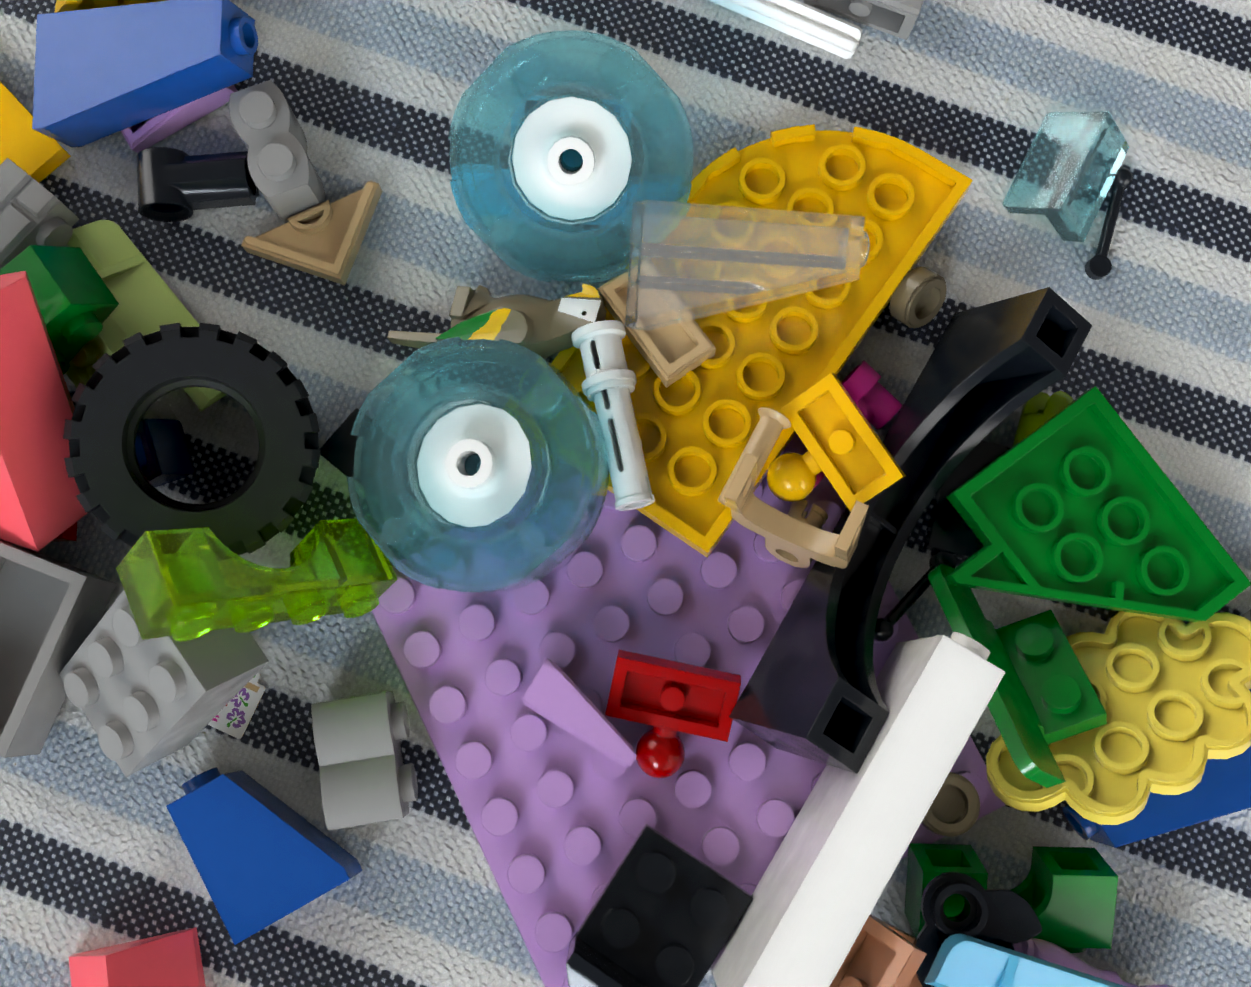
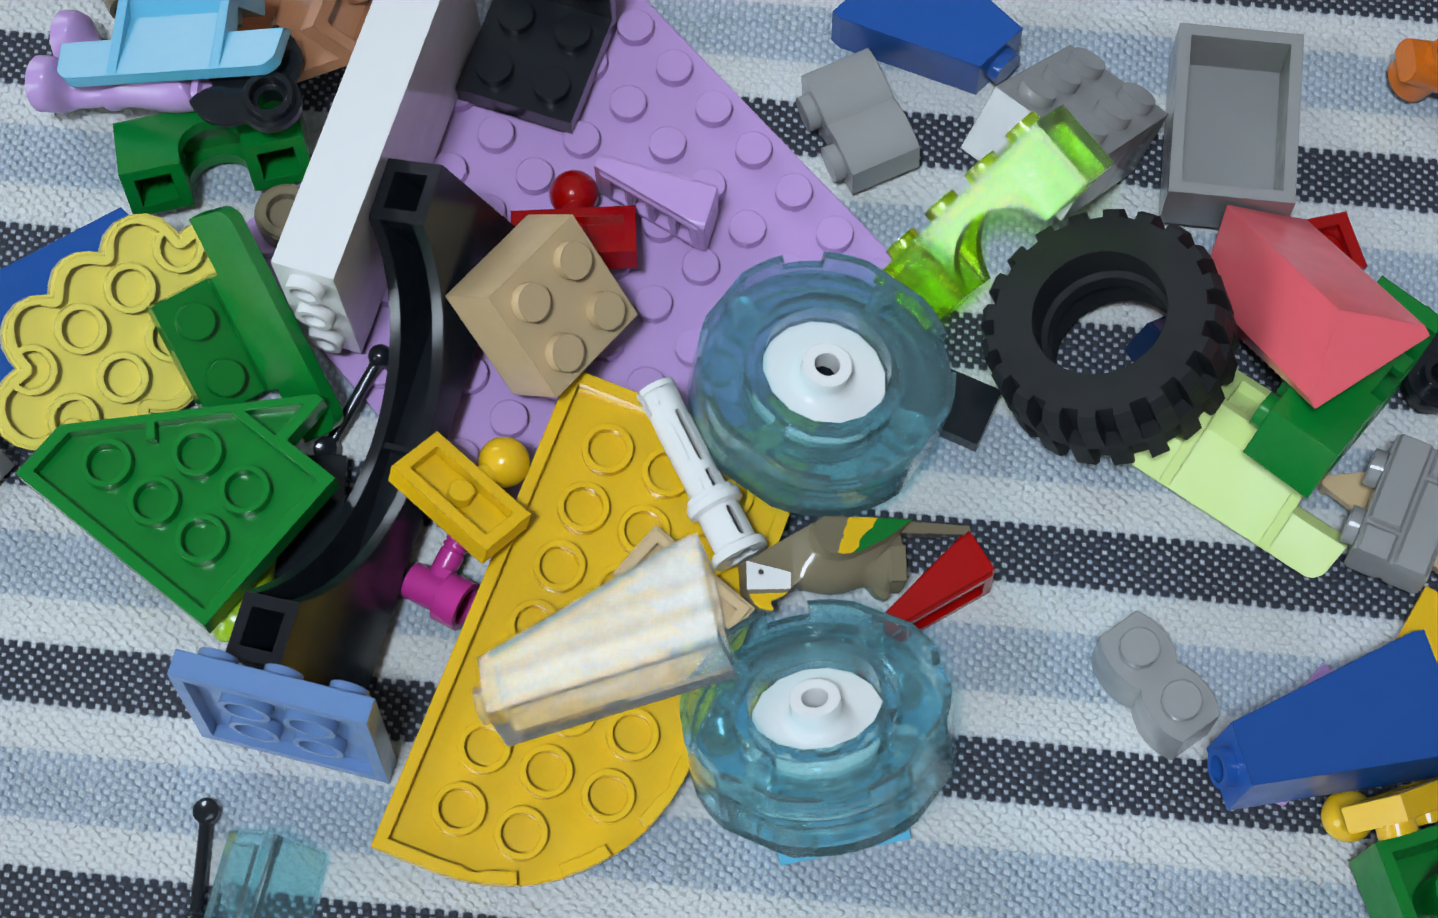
camera: 170 degrees right, 10 degrees down
(176, 184) = (1251, 629): black piece -> none
(322, 237) = (1074, 616): tan tile -> none
(431, 281) = (947, 585): none -> red slope
(724, 611) = (542, 305): none -> tan brick
(786, 535) = (491, 409): tan piece -> none
(918, 297) = (406, 707): dark tan tile -> none
(1007, 256) = (283, 713): none -> medium blue plate

